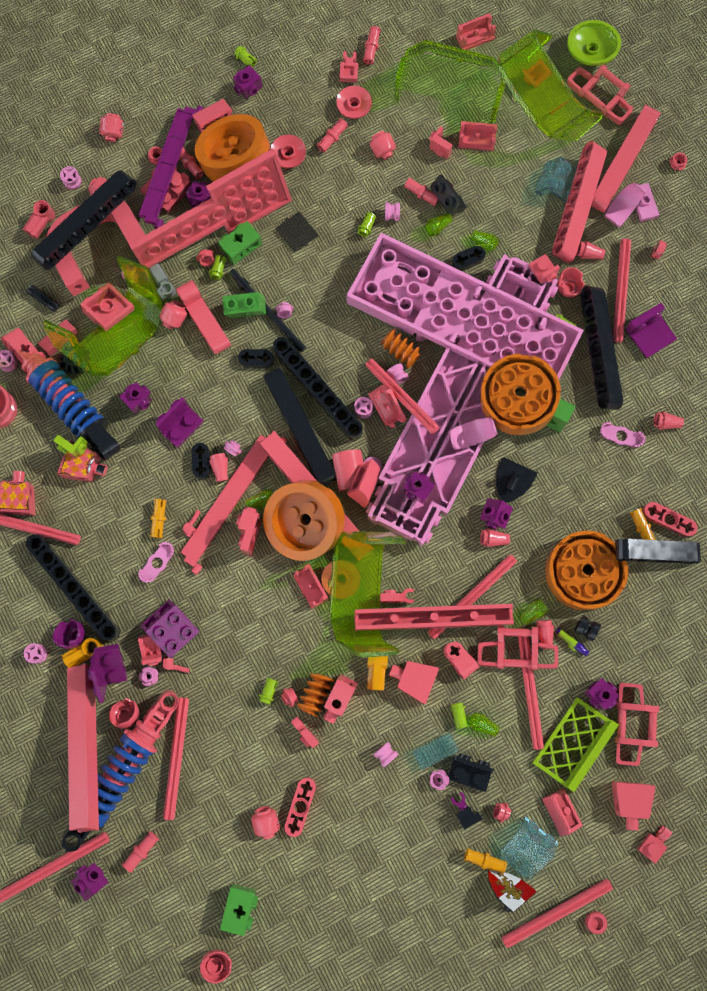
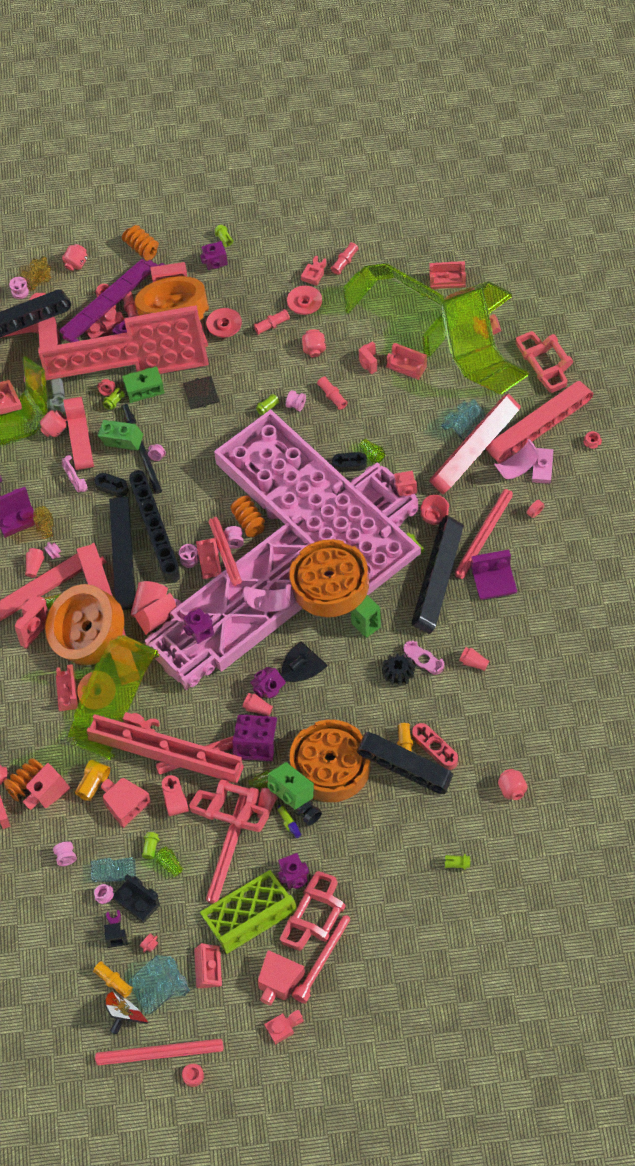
camera: 25 degrees right, 20 degrees down
(84, 156) = (39, 272): none -> clear yellow hips
(168, 90) = (140, 242): none -> orange piece
(196, 461) = (16, 552): black beam -> none
(211, 421) = (43, 521): none -> clear yellow hips
(225, 370) = (79, 484): none -> bright pink piece
(438, 224) = (332, 424): clear neon green cone -> none
(447, 195) = (354, 402): black bracket -> none
(507, 571) = (254, 737): none -> magenta bracket
(562, 606) = (290, 785): none -> bright green brick
(589, 251) = (468, 490): coral cone -> none
(594, 42) = (553, 314): lime dish -> none
(599, 454) = (391, 671): none -> black gear
(658, 804) = (302, 992): none -> coral piece

